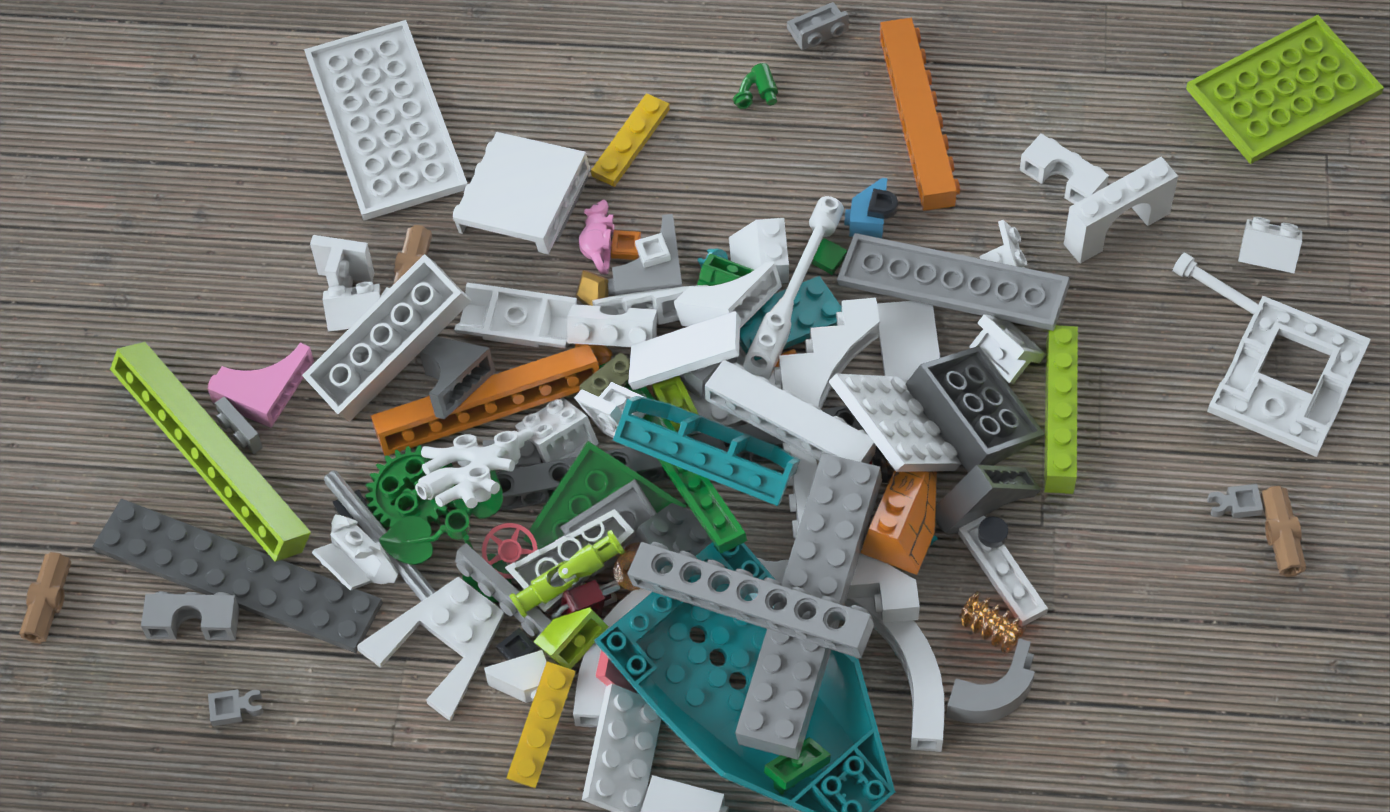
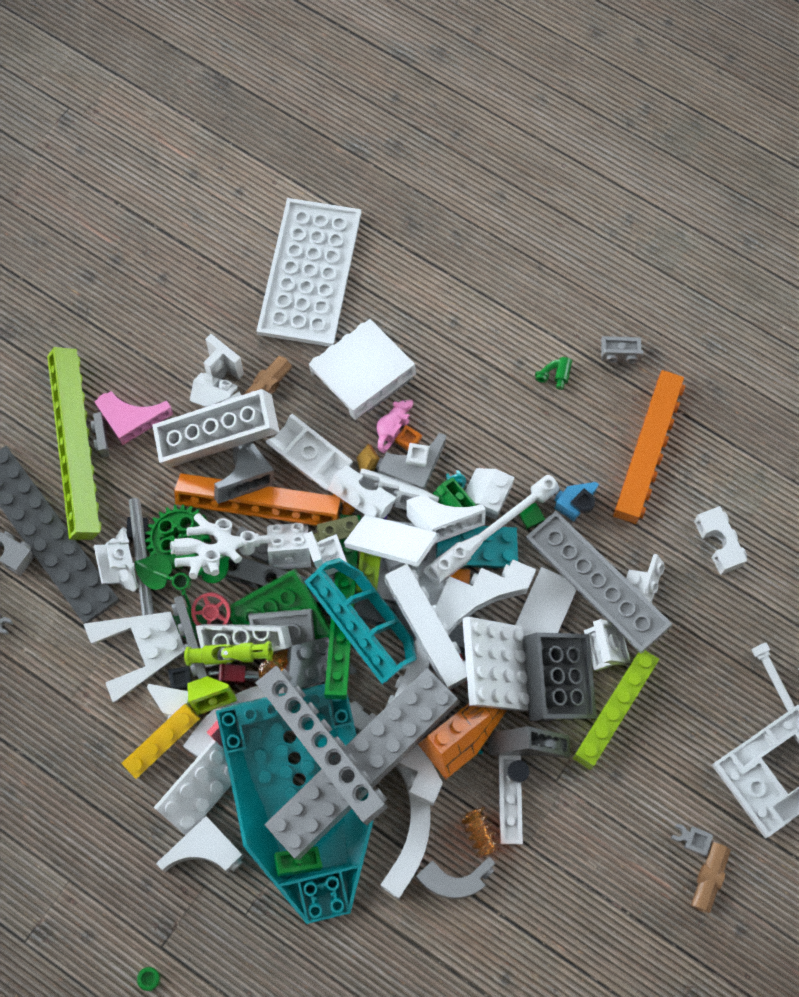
camera: 25 degrees right, 10 degrees up
(630, 140) = (454, 366): yellow plate -> none
(1146, 190) = (766, 589): white arch -> none

